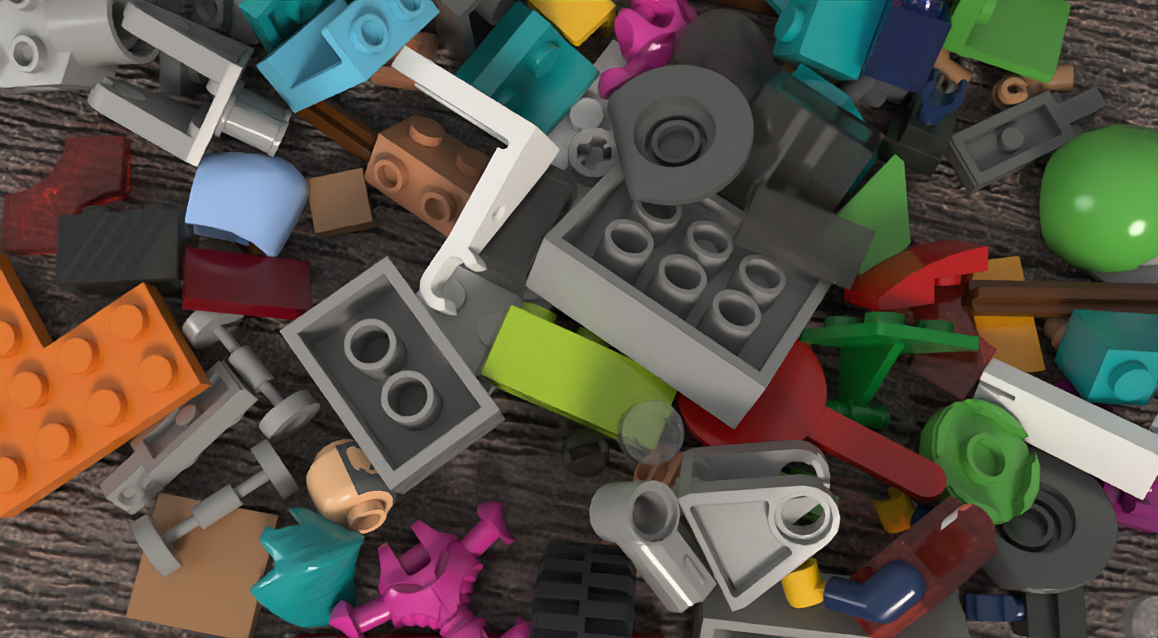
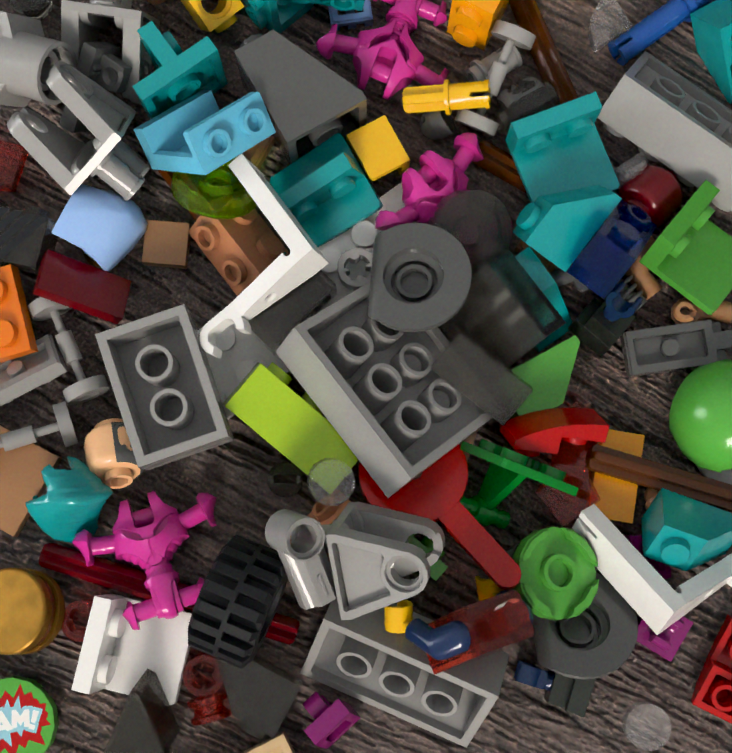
camera: 15 degrees right, 5 degrees up
(381, 112) = (212, 195): none -> clear neon green tile

